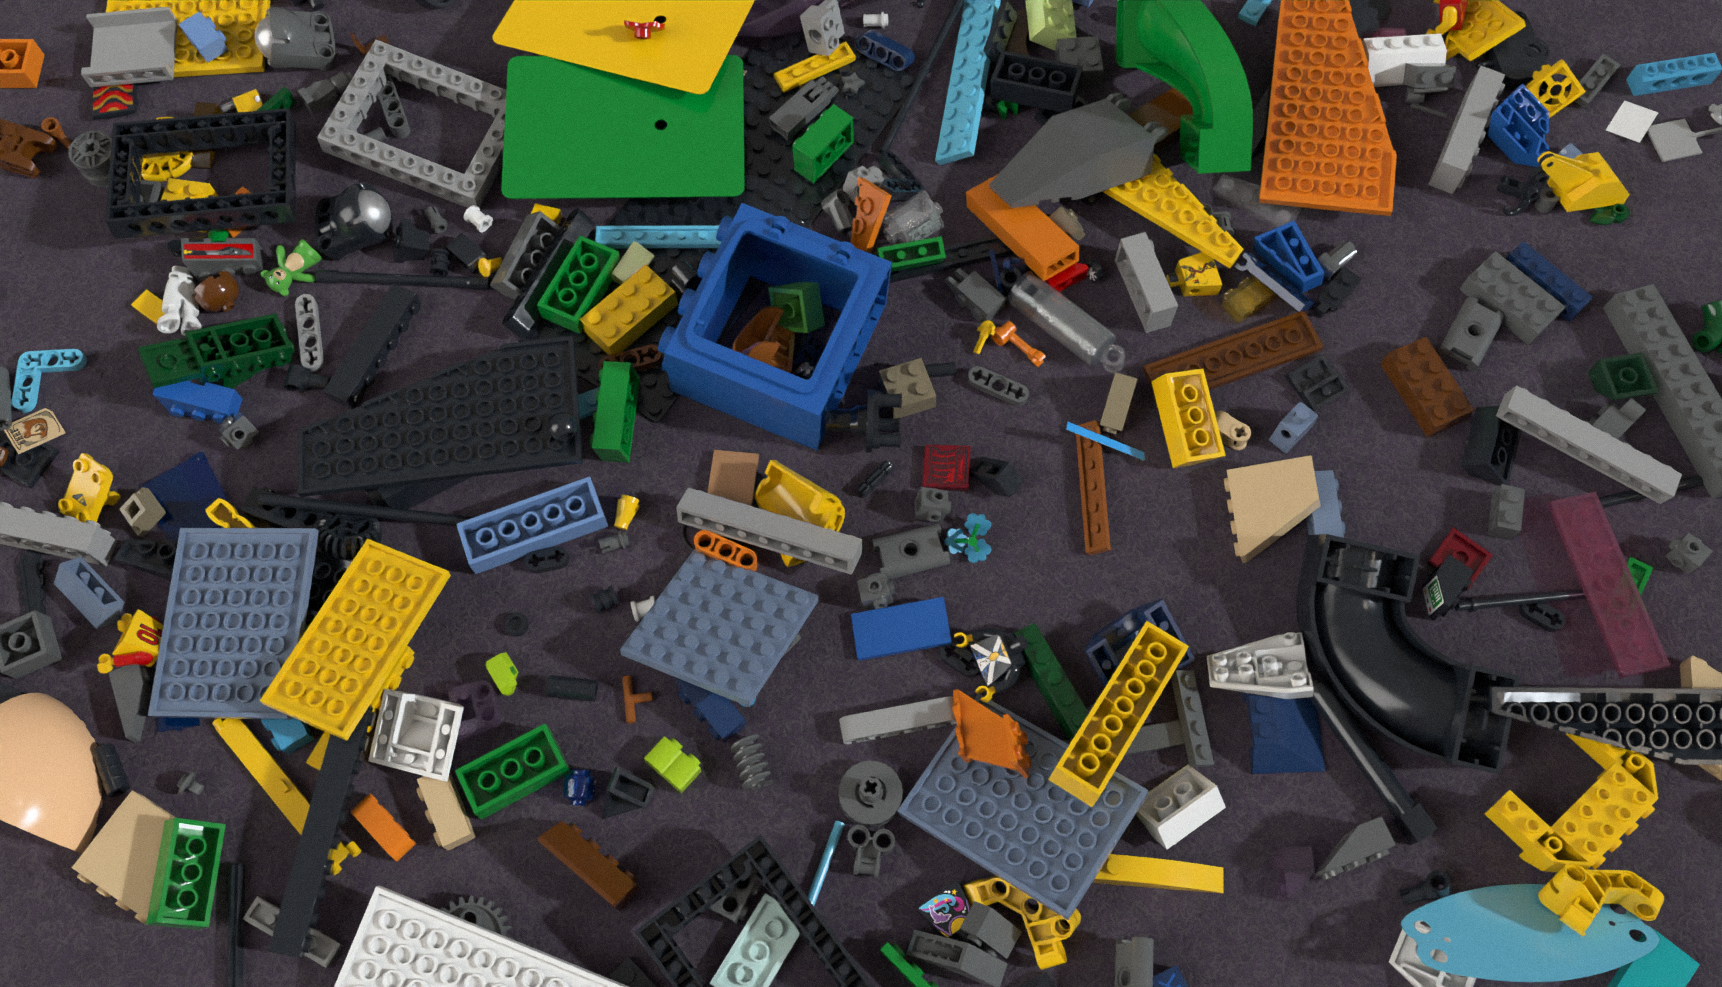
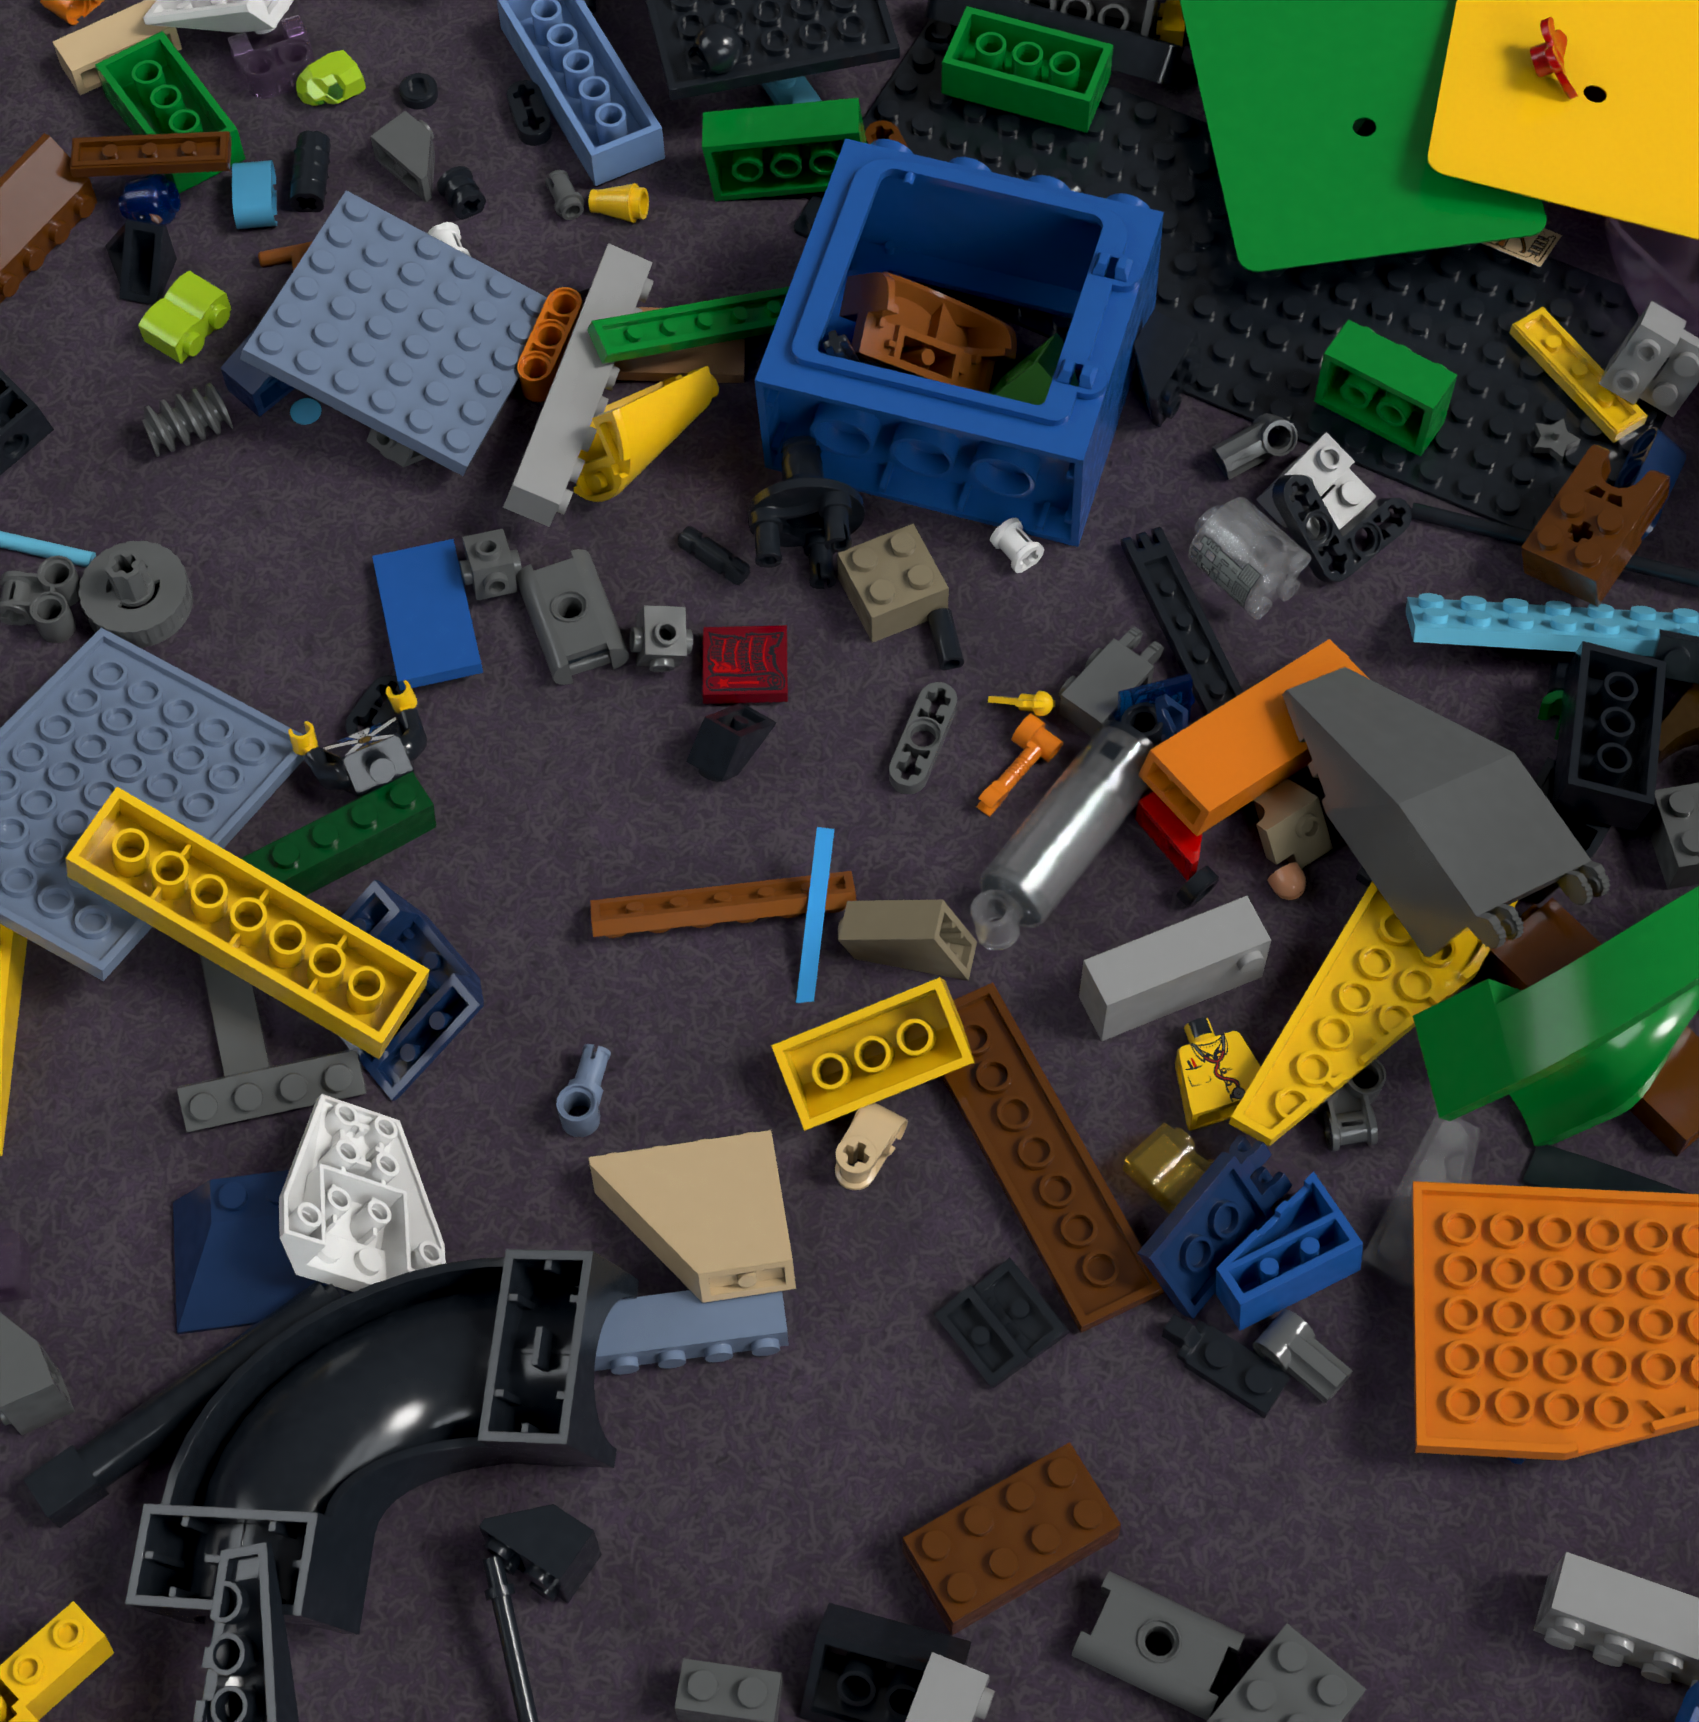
camera: 85 degrees right, 5 degrees down
(559, 775) = (150, 154): none -> reddish brown tile
(570, 627) = (407, 152): none -> dark grey slope
(583, 721) = (254, 194): none -> dark azure beam
(629, 311) = (970, 123): yellow brick -> none
(631, 262) = (1085, 144): yellowish green slope -> none
(658, 236) = (1156, 187): medium azure tile -> none
(734, 466) = (686, 325): none -> green plate
(798, 109) = (1467, 350): dark grey hinge -> none
(870, 213) = (1234, 480): orange wing -> none
(887, 329) = (1016, 545): none -> white bush
(897, 719) = (262, 626): light grey beam -> none
(913, 65) = (1592, 528): none -> reddish brown brick
(913, 253) = (1161, 548): green brick -> none
(976, 549) = (601, 690): dark azure plant -> none
(988, 736) = (205, 733): orange piece -> none
(1092, 233) = (1288, 881): none -> nougat hinge
(1179, 806) = (105, 1067): white slope -> none
(1196, 560) = (584, 1091): none -> sand blue pin
(1297, 423) = (883, 1262): sand blue torso -> none
(1463, 550) = (625, 1605): dark red tile -> none

